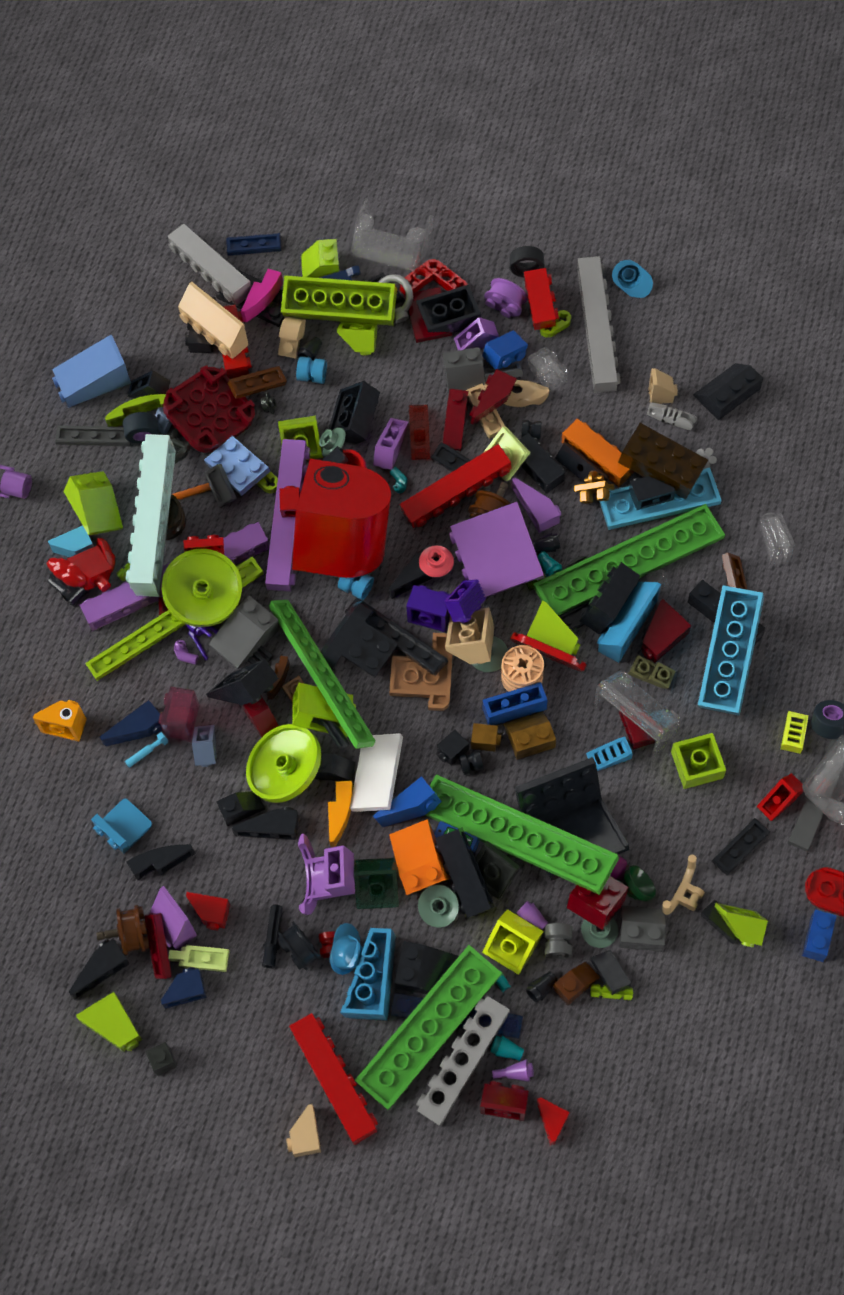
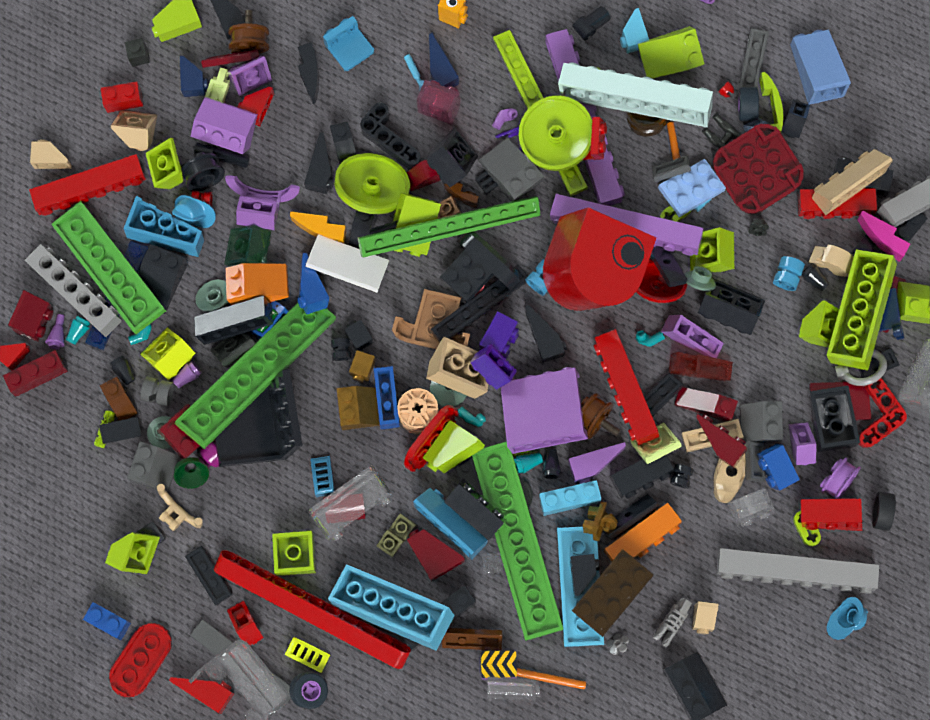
camera: 100 degrees right, 10 degrees up
(87, 568) = (601, 40): red torso -> none
(125, 451) = (728, 87): none -> red hinge
(204, 745) = (409, 121): sand blue slope -> none
(219, 1063) = (122, 97): none -> red brick
(227, 757) = (393, 139): none -> black beam
(239, 934) = (224, 125): none -> medium lavender slope
(255, 1038) = (135, 129): none -> tan slope
(257, 382) = (782, 219): reddish brown plate -> none
(288, 500) = (633, 219): red brick -> none
(297, 987) = (164, 165): none -> lime slope
(436, 568) = (541, 359): coral piece -> none
(517, 620) = (469, 418): none -> teal arm
(568, 1082) = (35, 373): none -> dark red brick
(577, 520) = (570, 498): none -> medium azure brick
(748, 736) = (312, 609): none -> red beam
(754, 513) = (551, 678): none -> orange bar
(756, 553) = (498, 664): none -> piece

